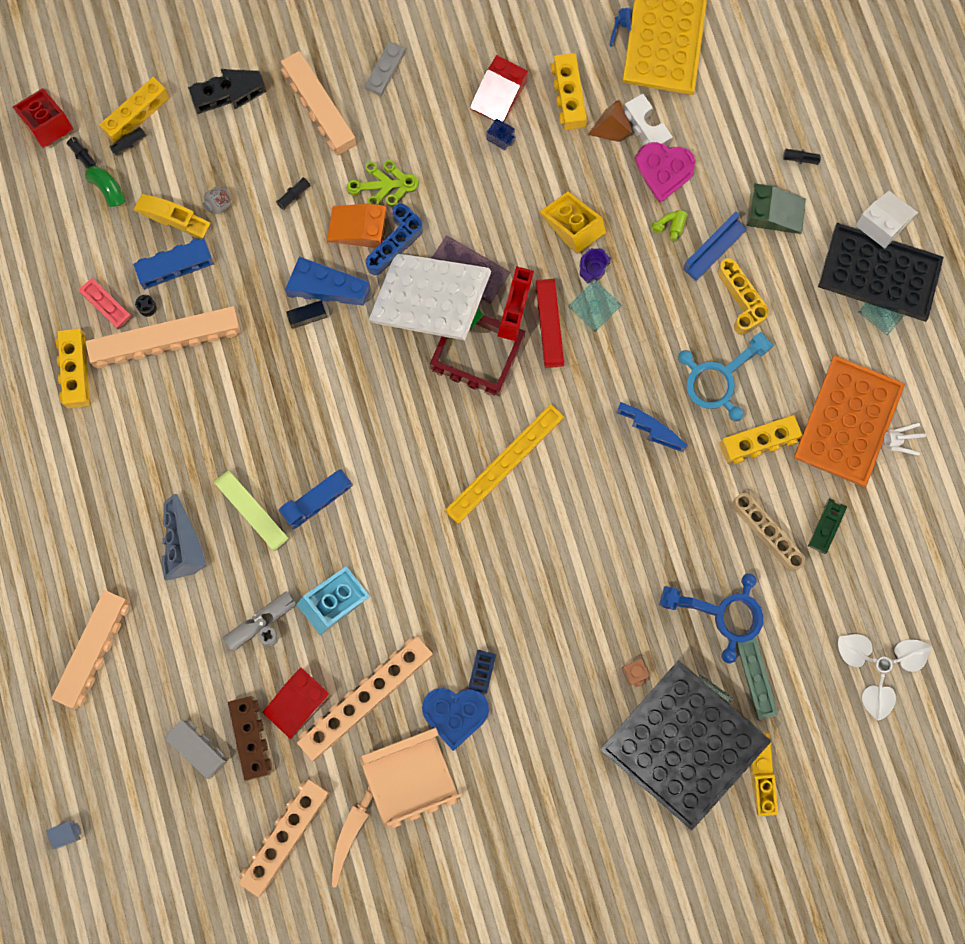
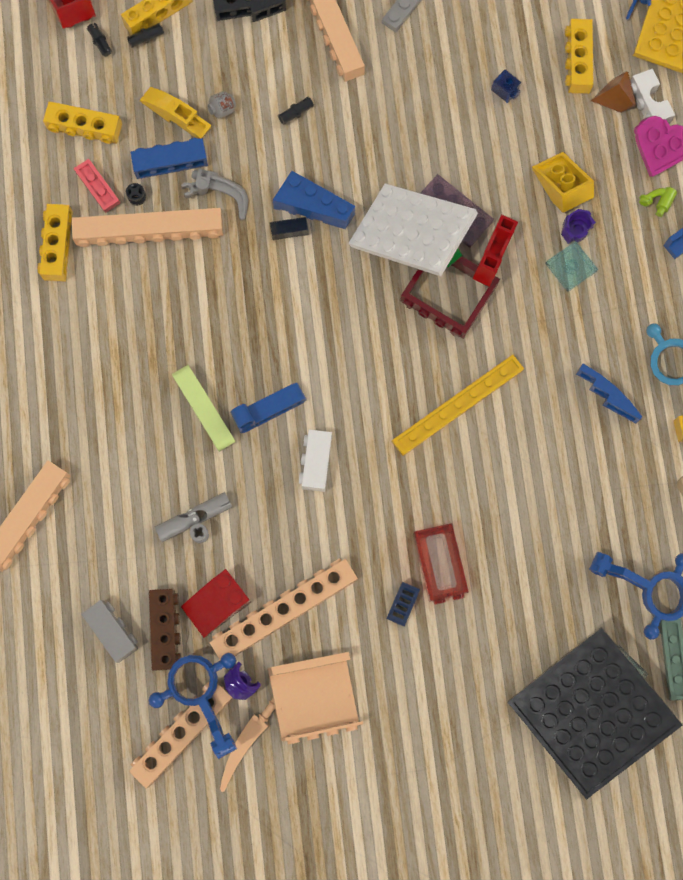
camera: 10 degrees right, 0 degrees up
(71, 235) = (58, 112): none -> yellow brick
(106, 184) = (118, 73): green cylinder -> none
(183, 549) = (131, 432): sand blue wedge -> none
(219, 279) = (210, 180): none -> light grey piece
(327, 839) = (222, 743): none -> blue piece
(332, 600) = (268, 509): medium azure slope -> none
(333, 778) = (239, 684): none -> dark purple hair
(358, 225) = (353, 150): orange slope -> none
(372, 544) = (315, 460): none -> white brick
(384, 184) = (386, 116): lime plant -> none
(391, 241) = (382, 173): blue beam -> none
(455, 714) = (369, 642): blue plate -> none
(499, 89) = (512, 42): slope -> none
(512, 625) = (440, 563): none -> clear red piece
(549, 323) = (524, 276): red beam -> none
(635, 673) = (555, 632): nougat brick -> none
(764, 783) = (666, 766): yellow slope -> none

